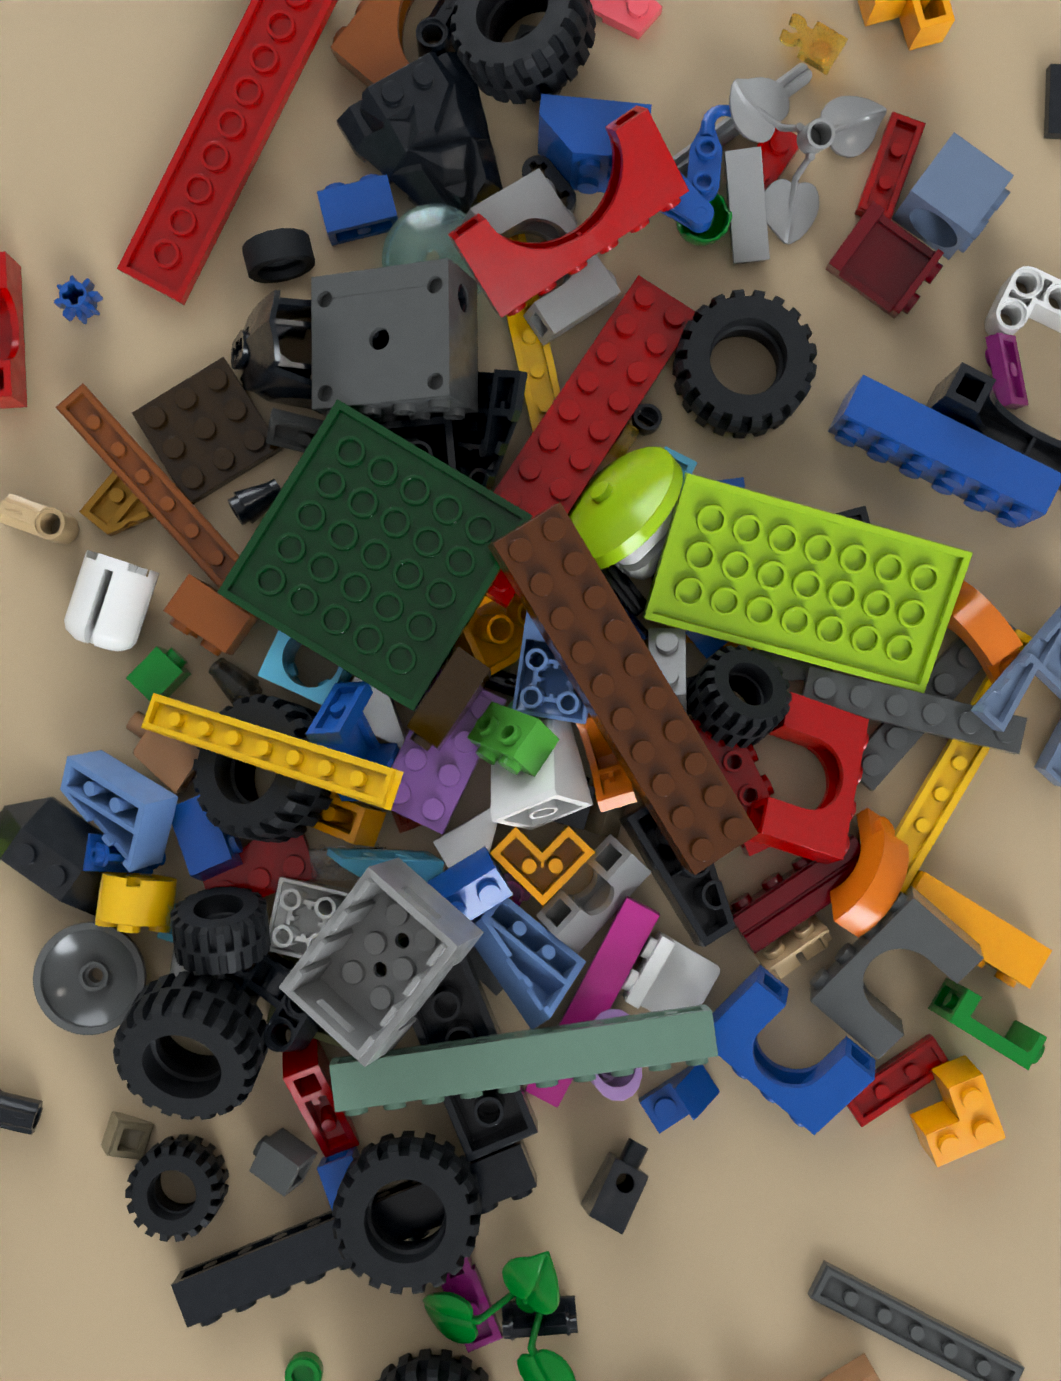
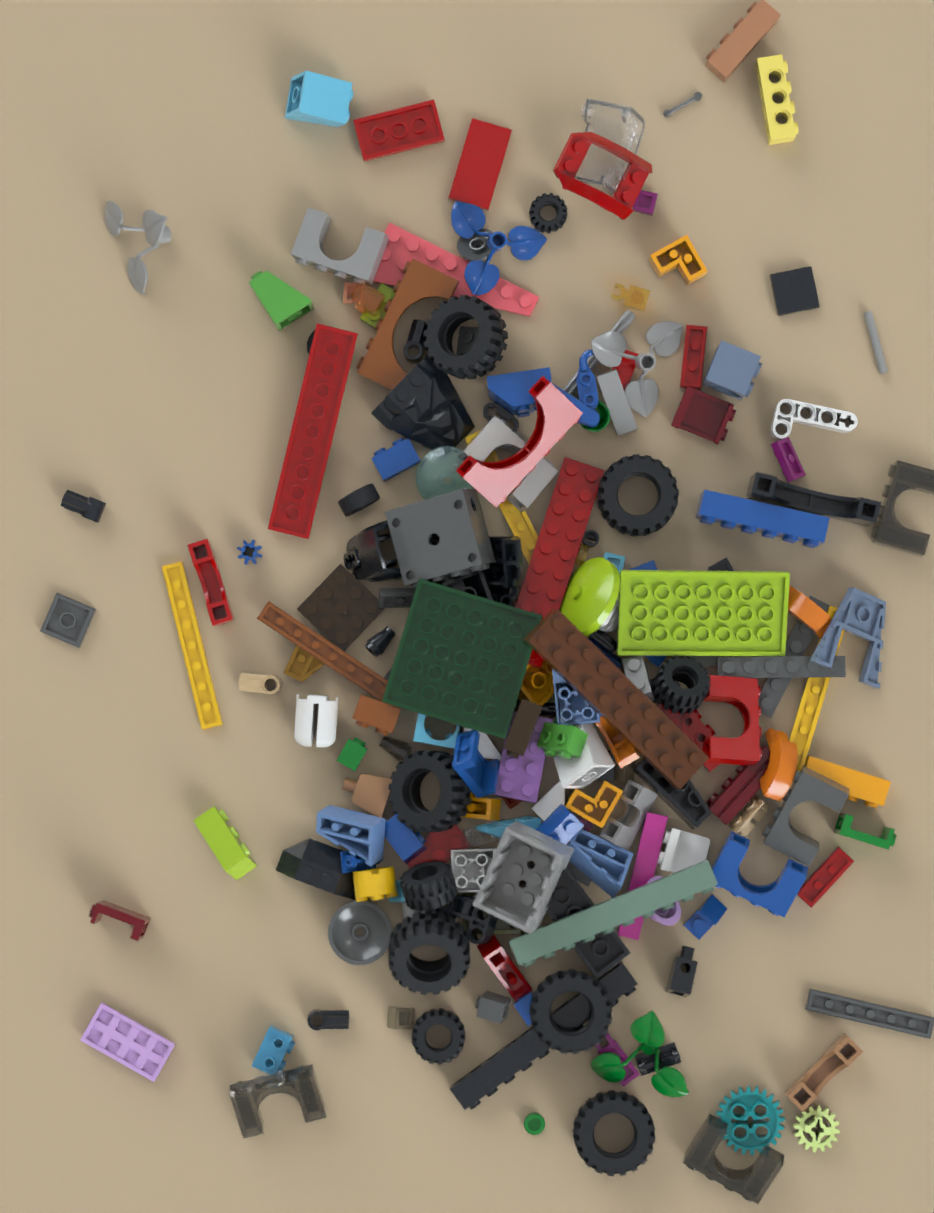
camera: 10 degrees left, 0 degrees up
(274, 751) = (433, 779): yellow tile -> none
(963, 1118) = (864, 889): light orange brick -> none

